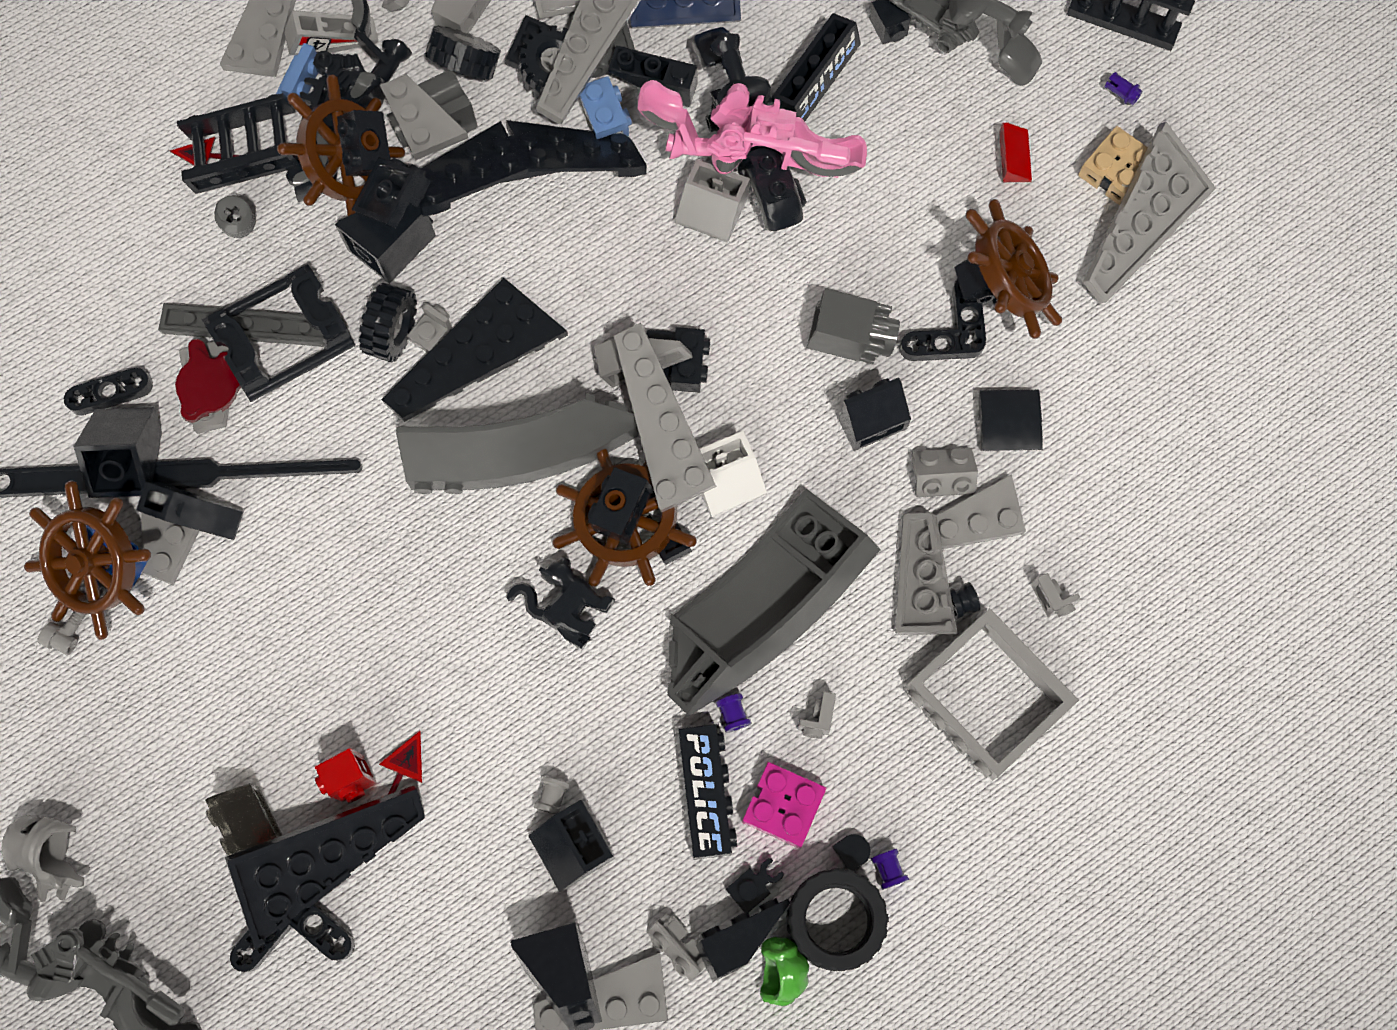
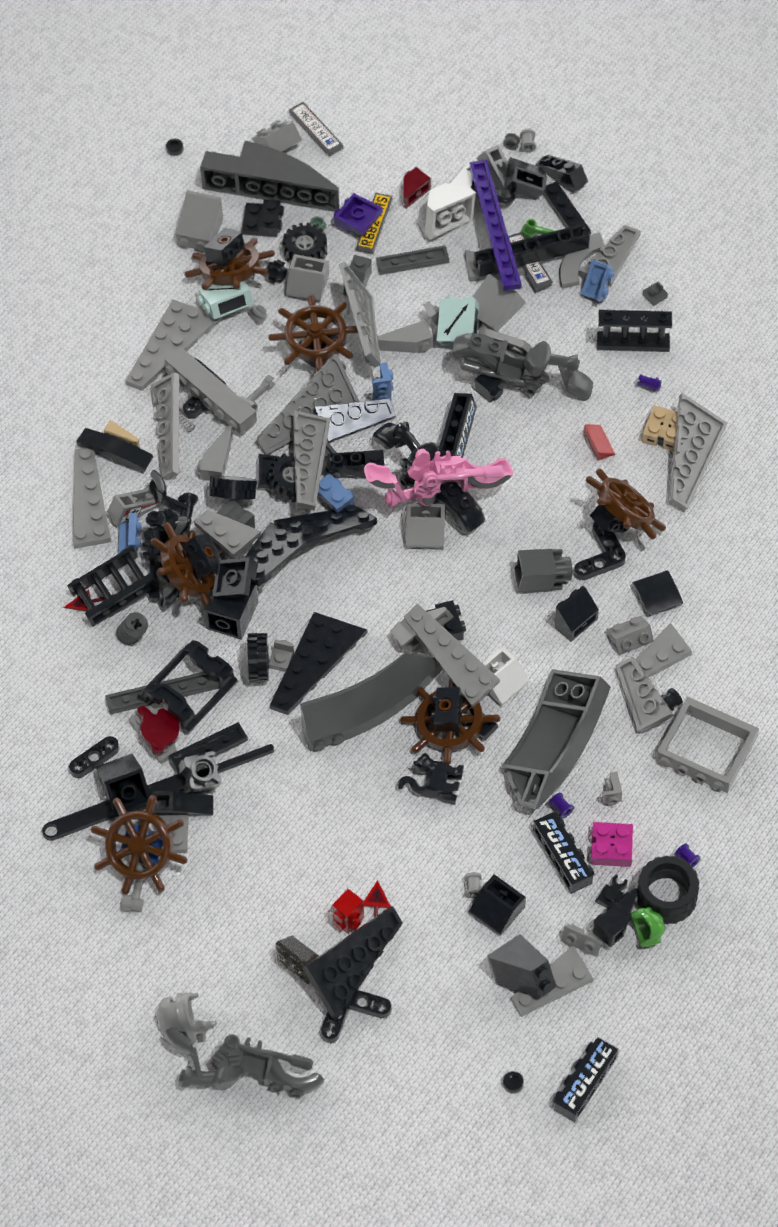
camera: 20 degrees left, 15 degrees down
(241, 470) = (193, 782): none -> dark grey piece
(267, 434) = (217, 742): none -> black plate
(852, 851) = (660, 851): black tile -> none
(1049, 595) = (721, 682): light grey bracket -> none

